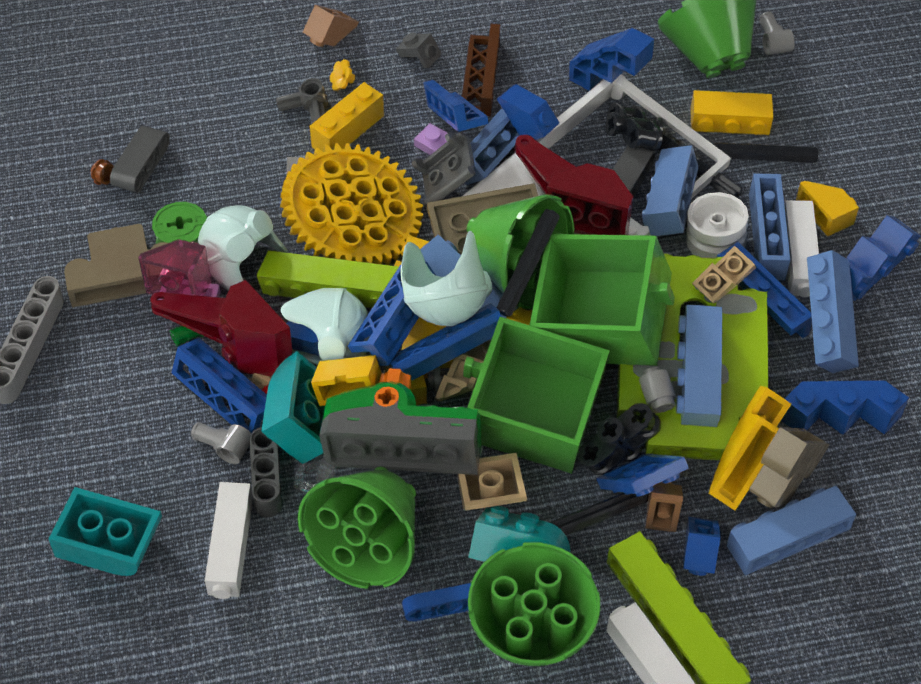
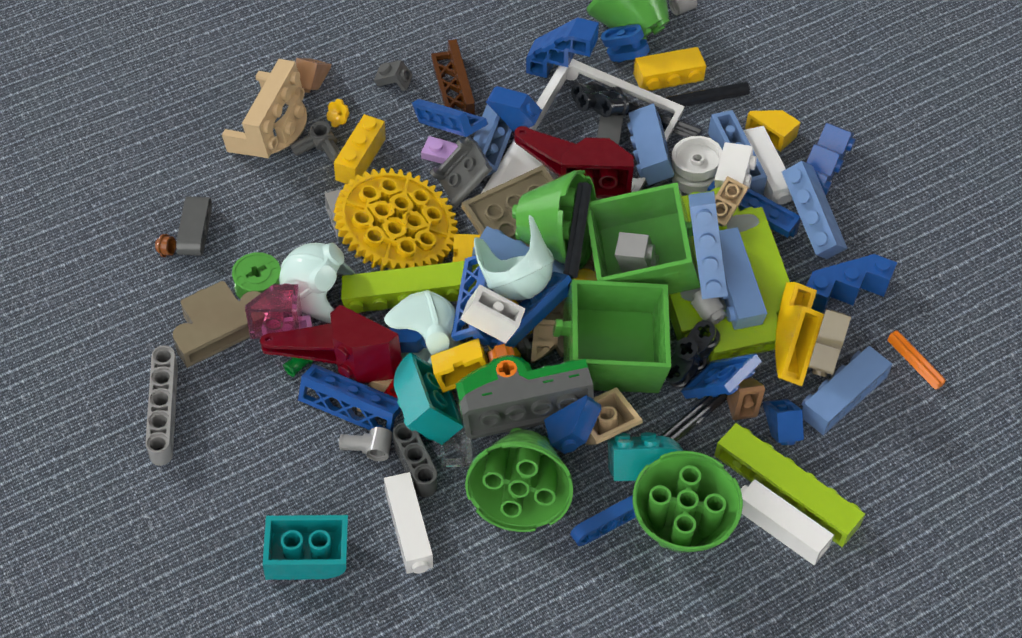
camera: 20 degrees left, 0 degrees up
(245, 63) = (277, 88): none -> tan piece
(393, 331) = (493, 314): none -> white brick
(445, 480) = (572, 424): none -> blue slope
(589, 304) = (635, 252): none -> light grey brick
(666, 316) = (707, 245): none -> medium blue brick
(688, 71) = (625, 43): none -> blue brick
(755, 237) = (736, 163): none -> white brick
(892, 518) = (915, 358): none -> orange axle

